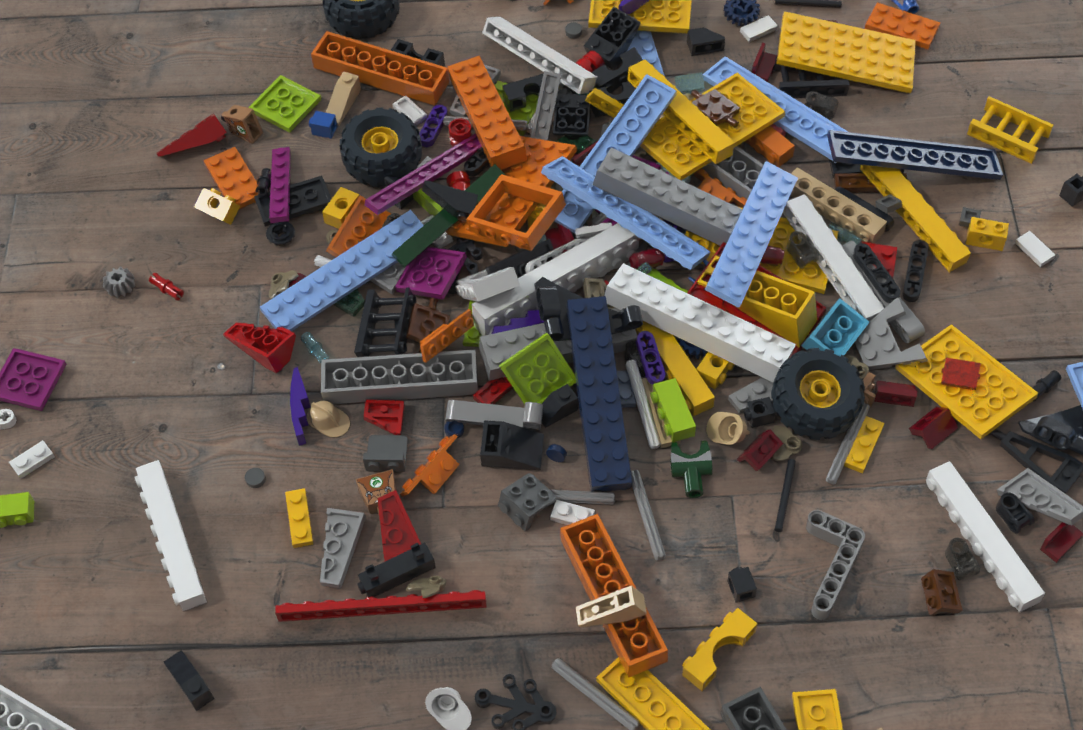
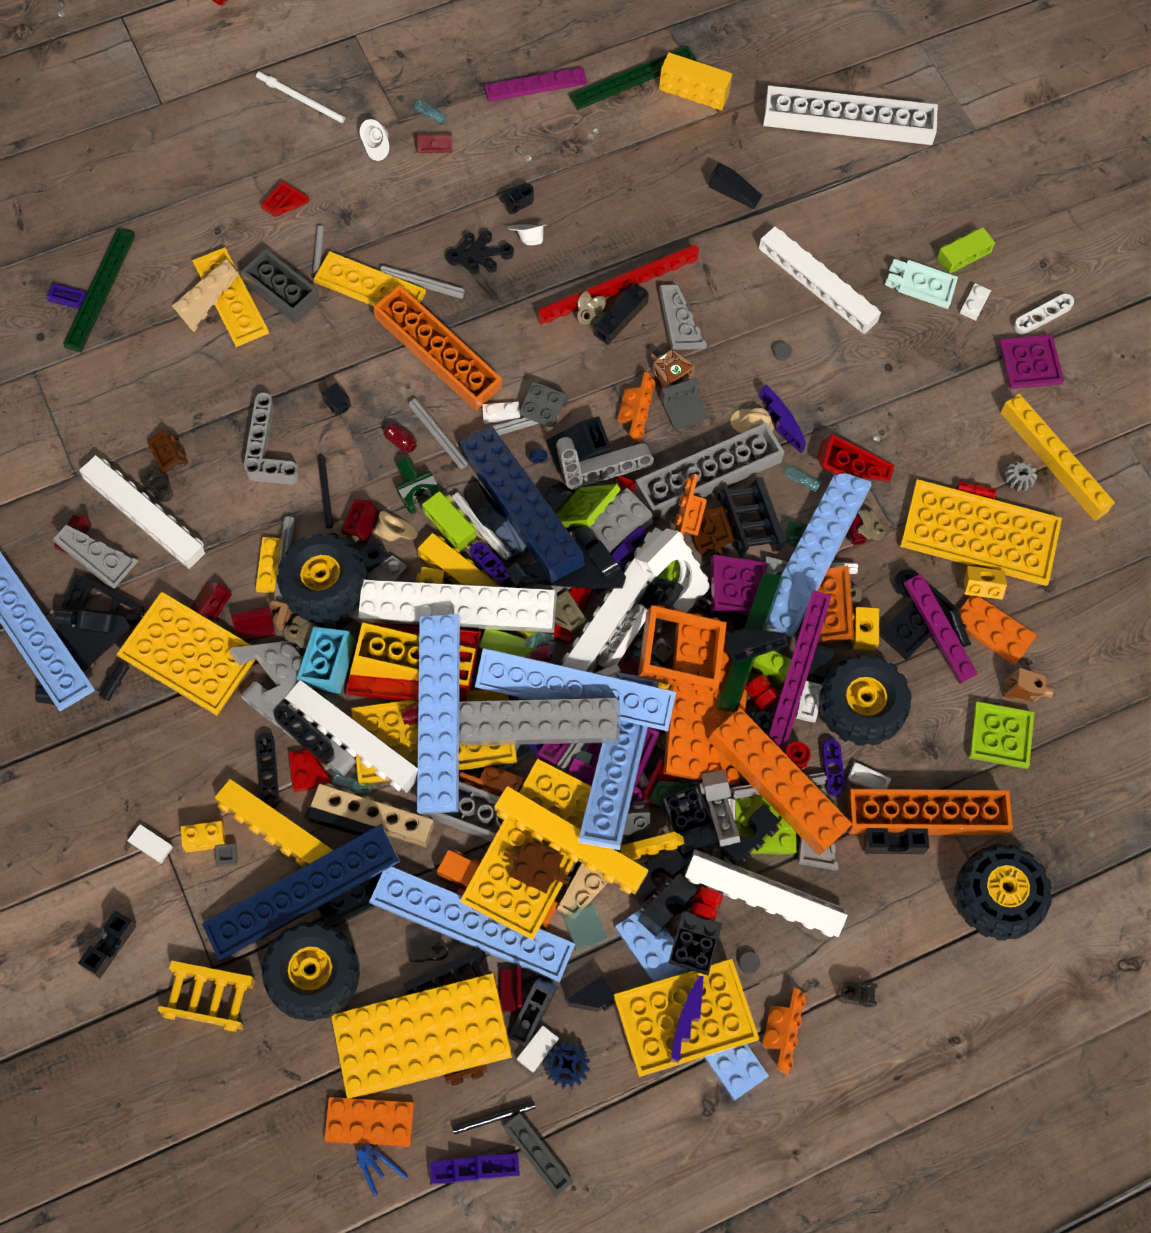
camera: 150 degrees right, 10 degrees up
(68, 495) = (922, 282): none -> light aqua tile
(75, 286) = (1057, 457): none -> yellow brick
(189, 251) = (981, 532): none -> yellow plate
(203, 133) = (1063, 657): red wedge -> none
(299, 518) = (725, 332): yellow plate -> none
(323, 124) = (945, 721): blue brick -> none
(344, 95) = (946, 762): tan slope -> none
(385, 414) = (702, 437): red wing -> none
(395, 526) = (639, 343): red wing -> none
(539, 130) = (715, 785): none -> light grey brick
(612, 608) = (427, 316): tan slope -> none
(635, 414) = (484, 507): none -> black slope
(688, 519) = (400, 438): none -> dark red head
(735, 630) = (329, 362): yellow arch -> none
(747, 47) = (532, 1011): none -> black slope
(803, 252) = (386, 731): clear smoke piece -> none
(888, 204) = (314, 824): dark grey plate -> none
(922, 106) = (307, 949): none -> black wheel
(960, 373) = (195, 653): clear red piece -> none
(1016, 515) = (117, 540): black piece -> none

